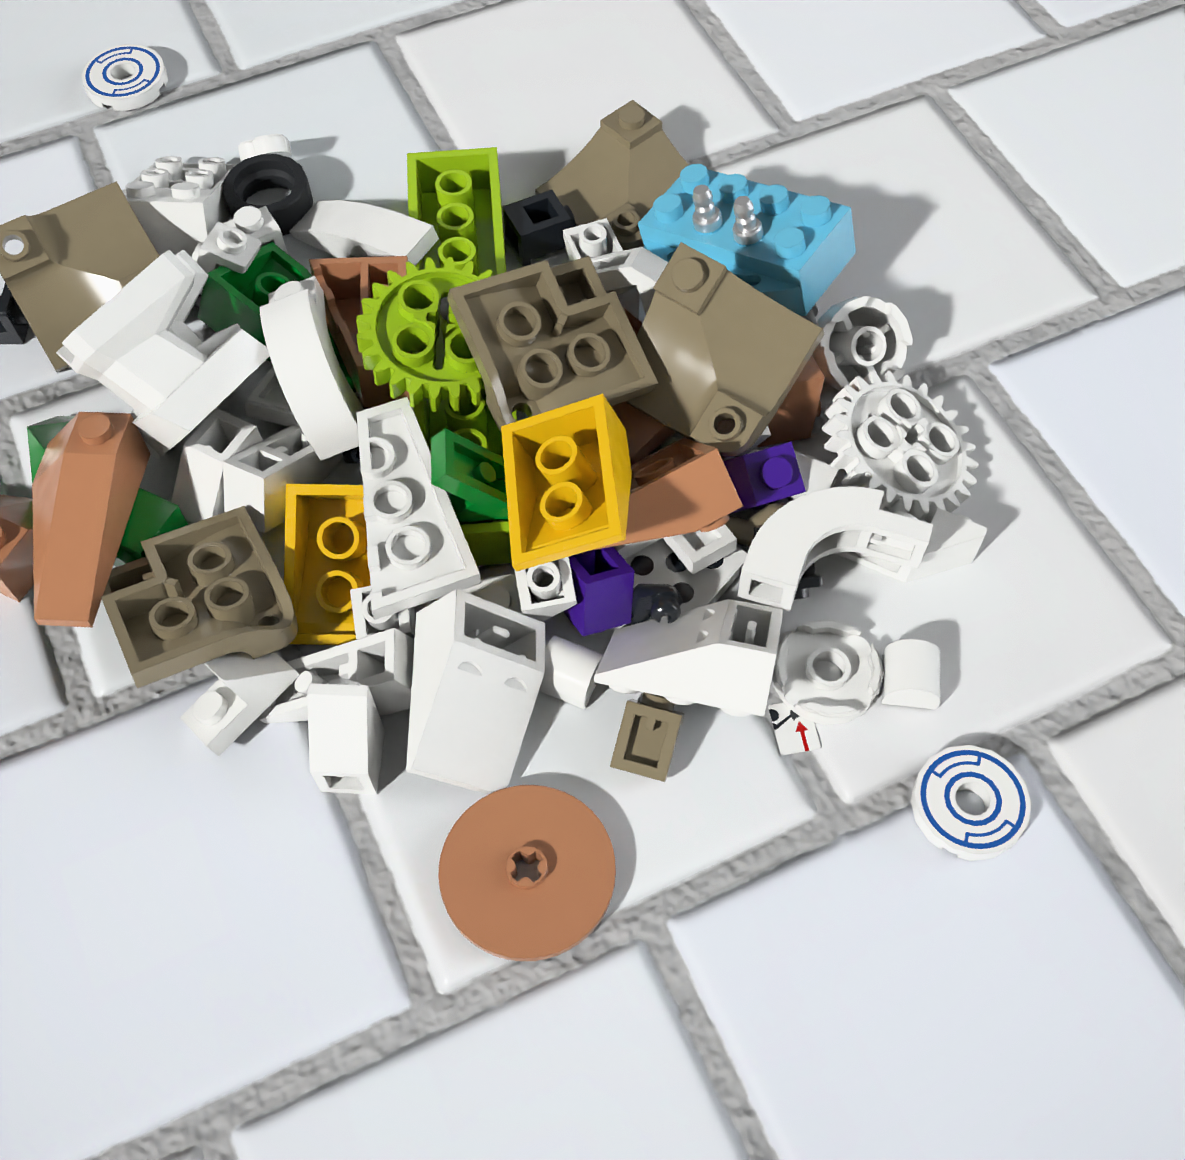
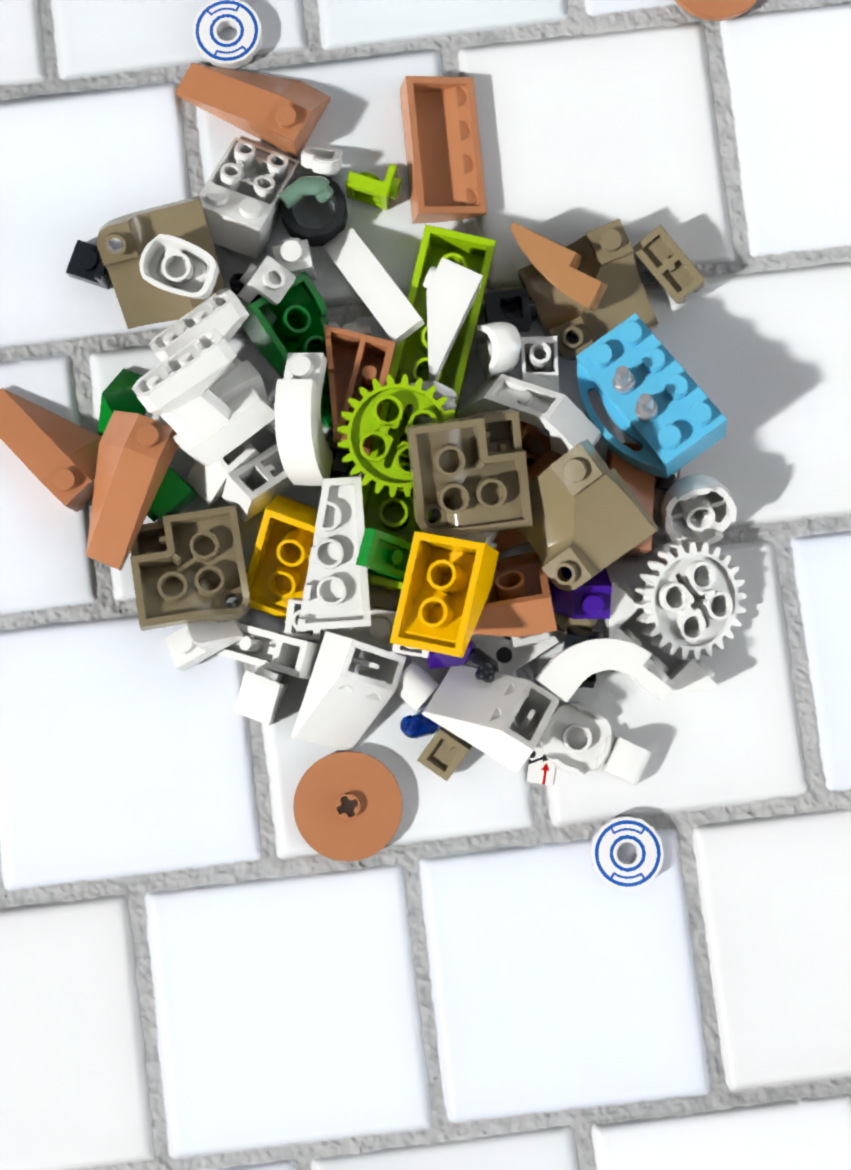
camera: 20 degrees right, 25 degrees up
(103, 245) = (179, 267): none -> white piece
(177, 125) = (263, 105): none -> nougat wedge
(249, 162) = (306, 186): none -> sand green arm
(334, 159) = (371, 191): none -> lime bracket
(401, 105) = (442, 148): none -> nougat slope
(461, 203) = (449, 300): none -> white slope
(536, 236) = (498, 348): none -> white piece
(582, 157) = (560, 267): none -> medium nougat slope
(600, 720) = (418, 726): none -> clear blue arm
(711, 133) = (669, 265): none -> dark tan hinge

